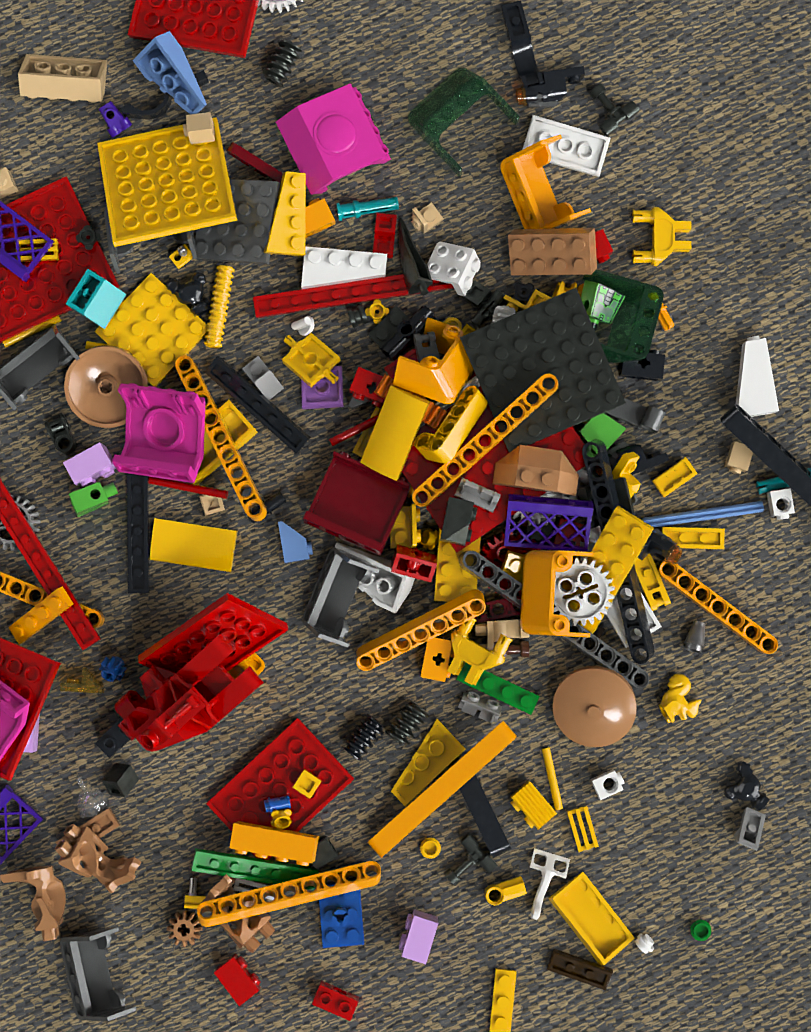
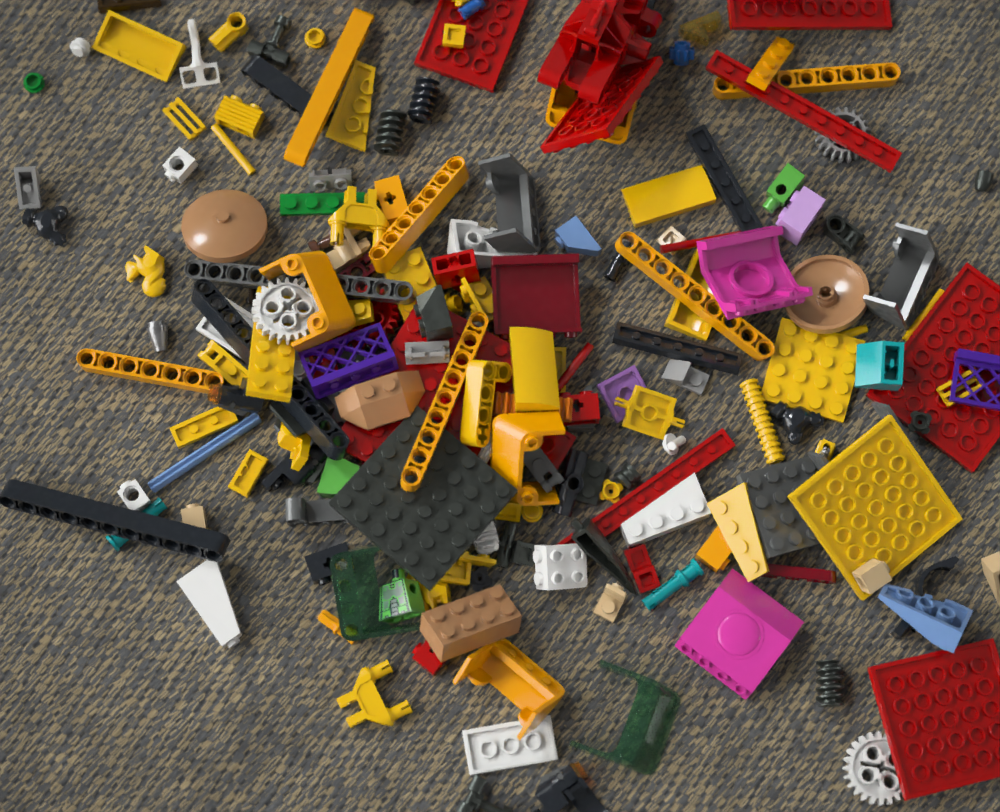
camera: 155 degrees right, 10 degrees down
(117, 123) = (956, 547): dark purple plate -> none

